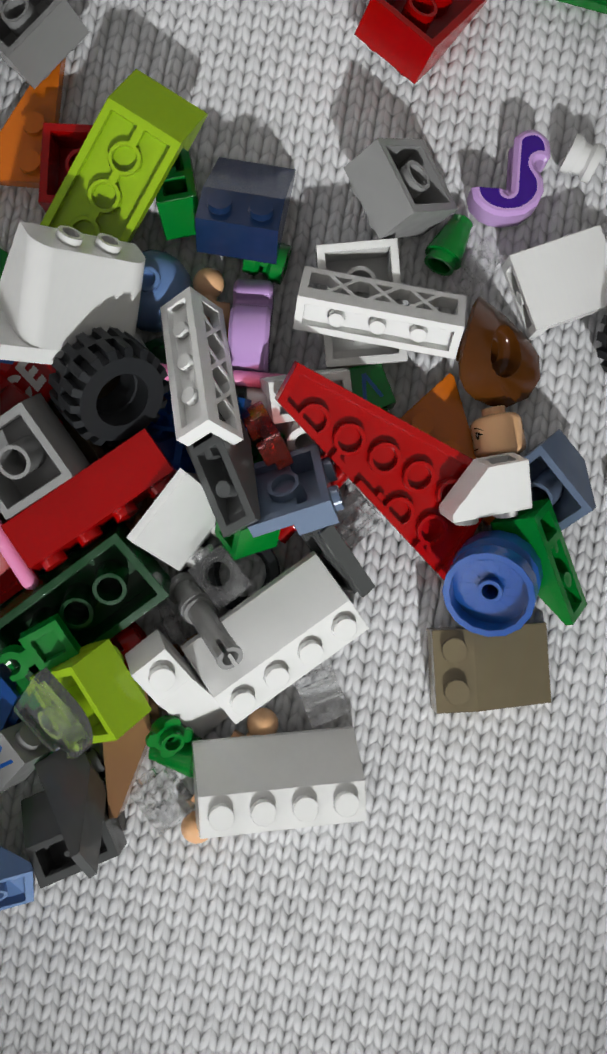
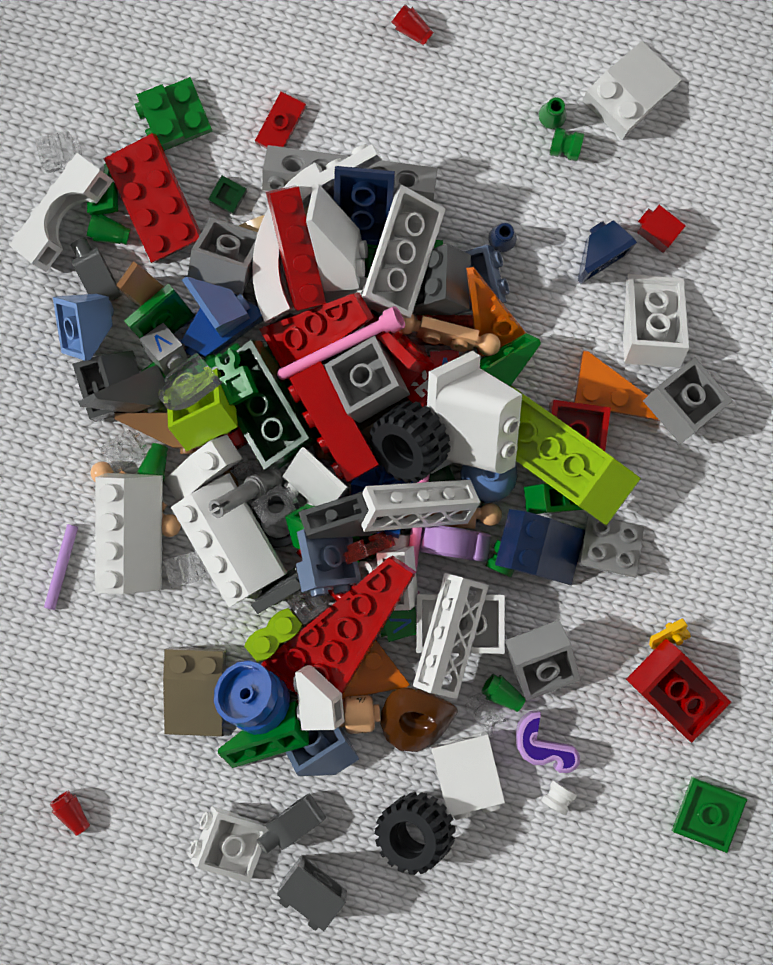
camera: 90 degrees right, 0 degrees up
(168, 735) = (167, 459): green plate -> none
(238, 117) = (612, 547): none -> light grey hinge
(334, 871) = (61, 566): none -> lavender bar
(345, 24) = (674, 632): none -> yellow piece
(408, 571) = (279, 629): none -> lime brick

